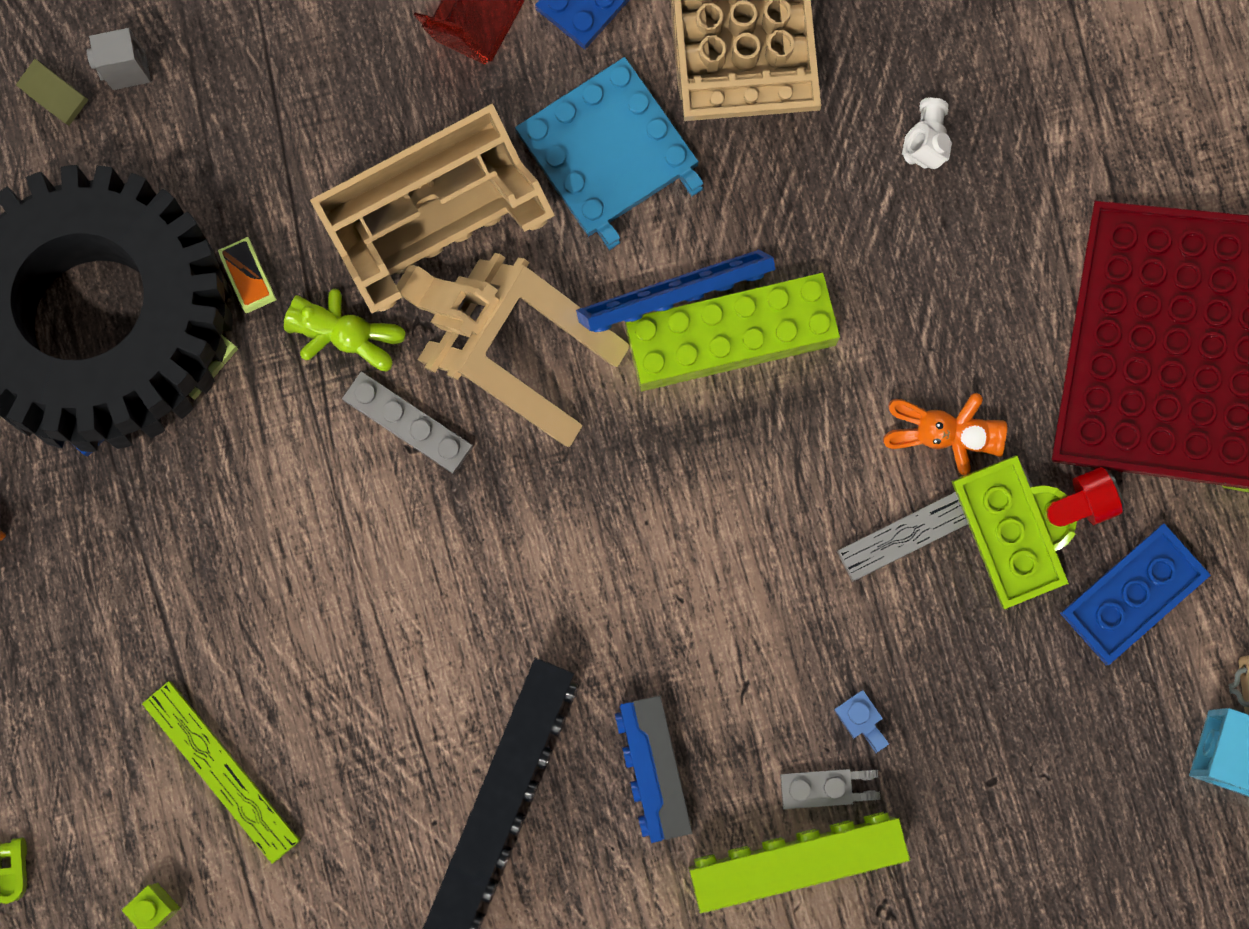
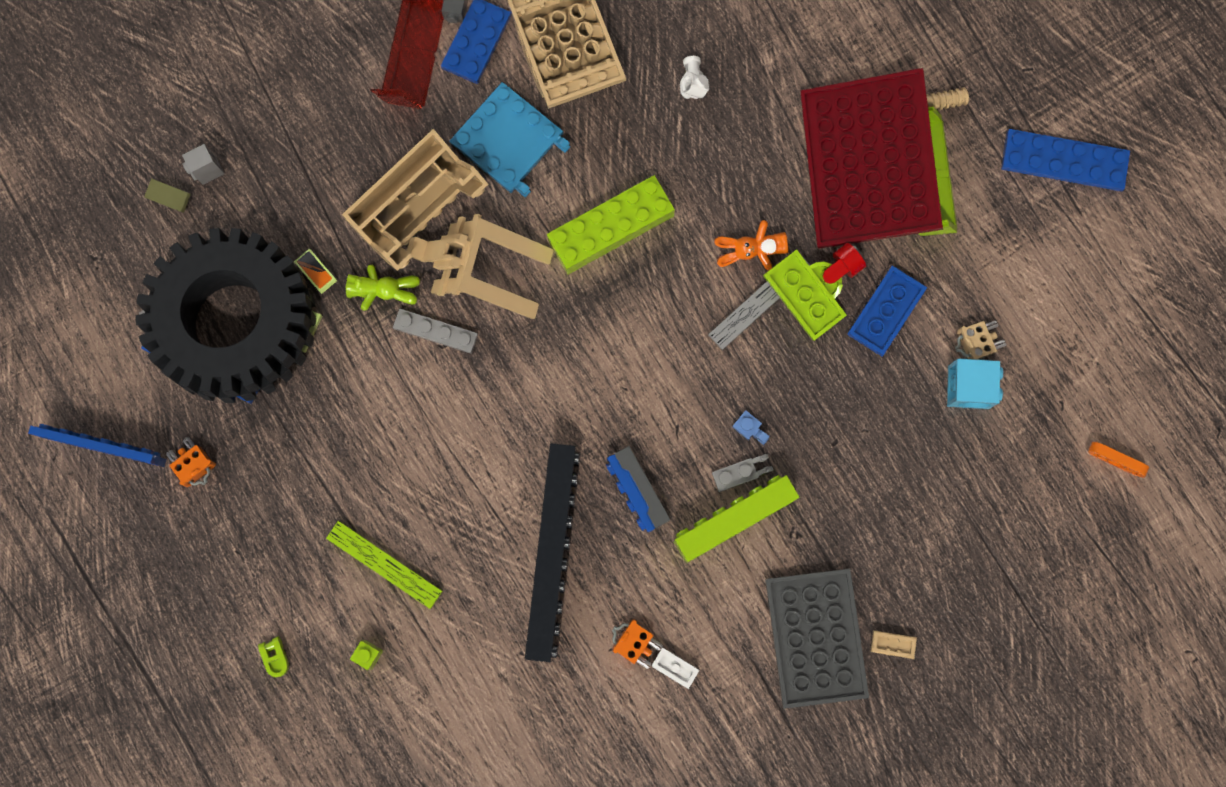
camera: 15 degrees left, 0 degrees up
(665, 294) = (576, 206): blue plate -> none

